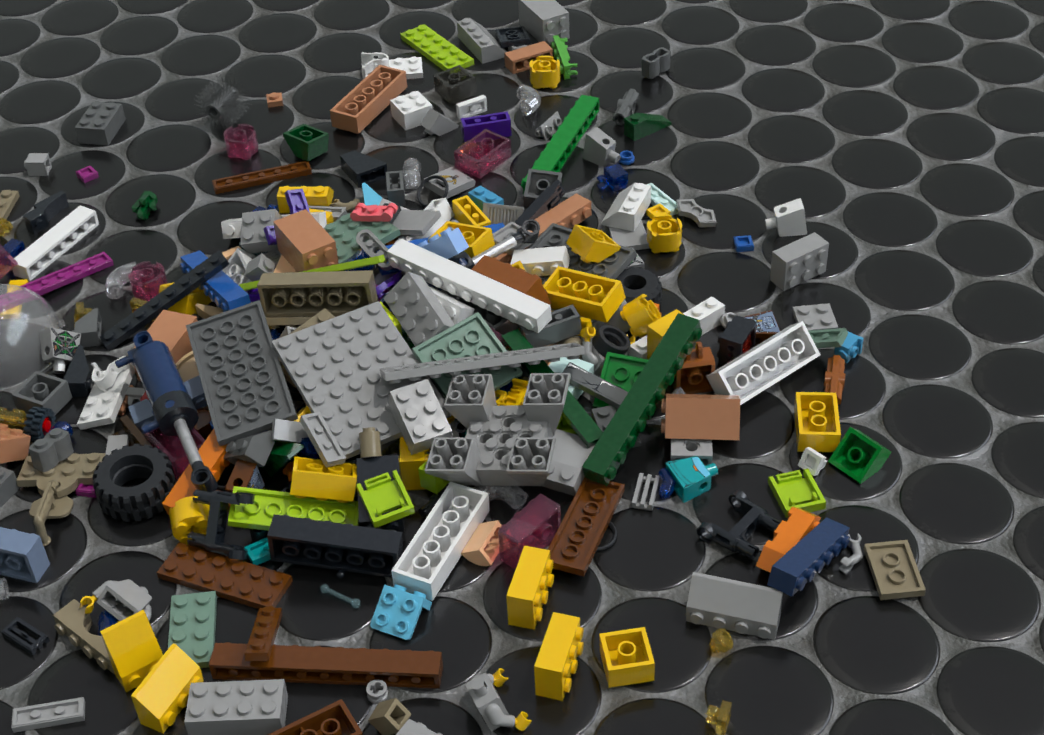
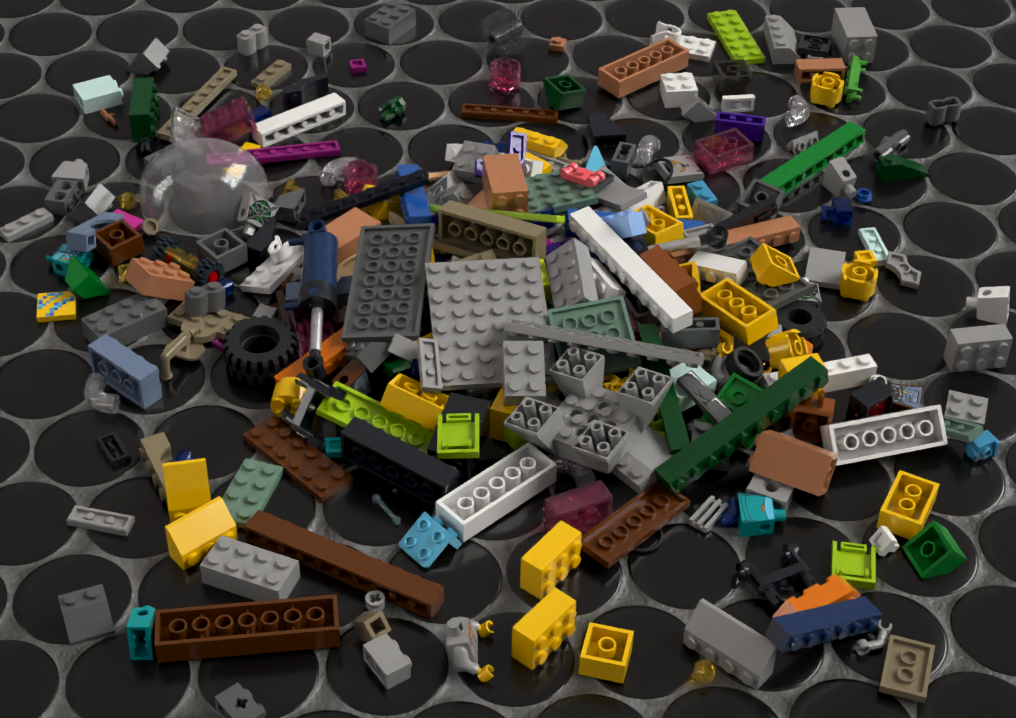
camera: 20 degrees right, 0 degrees up
(119, 599) = (200, 444): light grey torso -> none
(263, 634) = (302, 517): reddish brown plate -> none
(370, 443) = (468, 382): dark tan brick -> none
(372, 246) = (563, 206): light grey plate -> none
(483, 544) = (531, 510): light nougat brick -> none
(629, 207) = (837, 245): white slope -> none
(743, 243) = (935, 314): blue tile -> none
(835, 376) = (951, 472): dark orange piece -> none

